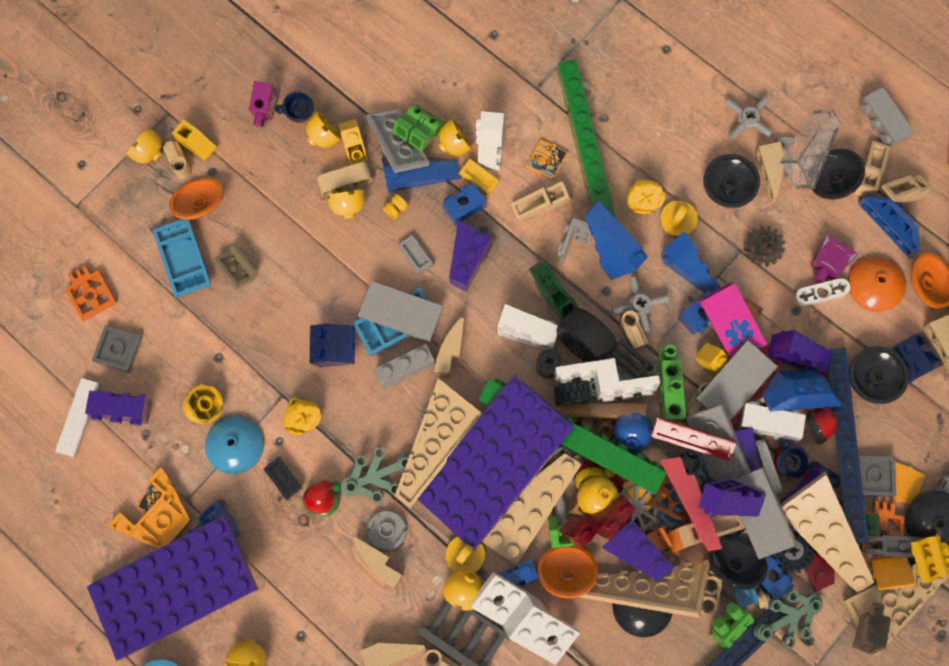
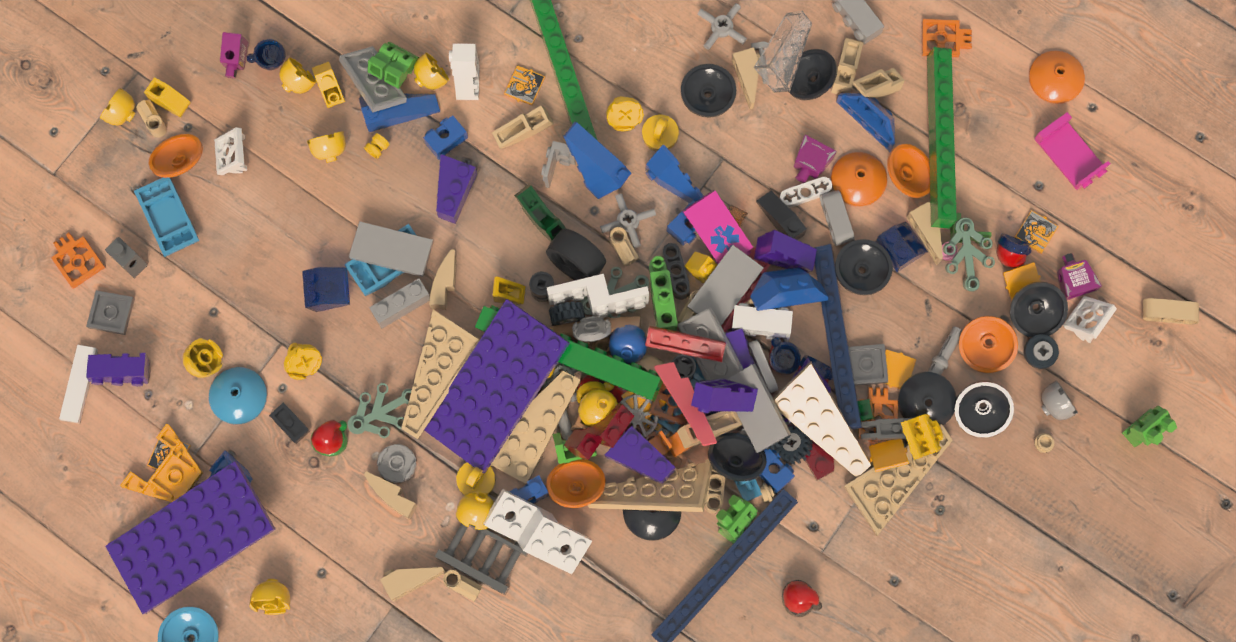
camera: 10 degrees left, 0 degrees up
(135, 293) = (124, 256): none -> dark grey torso
(236, 267) = (222, 220): dark tan bracket -> none
(242, 190) = (221, 143): none -> white piece
(344, 179) = (323, 122): tan beam -> none
(415, 254) = (401, 191): light grey tile -> none
(479, 176) = (458, 108): yellow tile -> none
(514, 365) = (509, 290): none -> yellow slope
(527, 328) = (517, 254): white wedge -> none
(597, 413) = (591, 329): none -> light grey tile
(641, 369) = (633, 283): black tile -> none
(688, 352) = (676, 262): none -> black beam
(756, 240) = (740, 145): clear smoke gear -> none
(792, 617) = (795, 505): sand green plant -> none
(796, 314) = (781, 216): none -> black slope
(821, 423) = (810, 319): red piece -> none
(853, 321) = (837, 218): none -> light grey beam
(872, 630) = (870, 509): clear smoke torso -> none

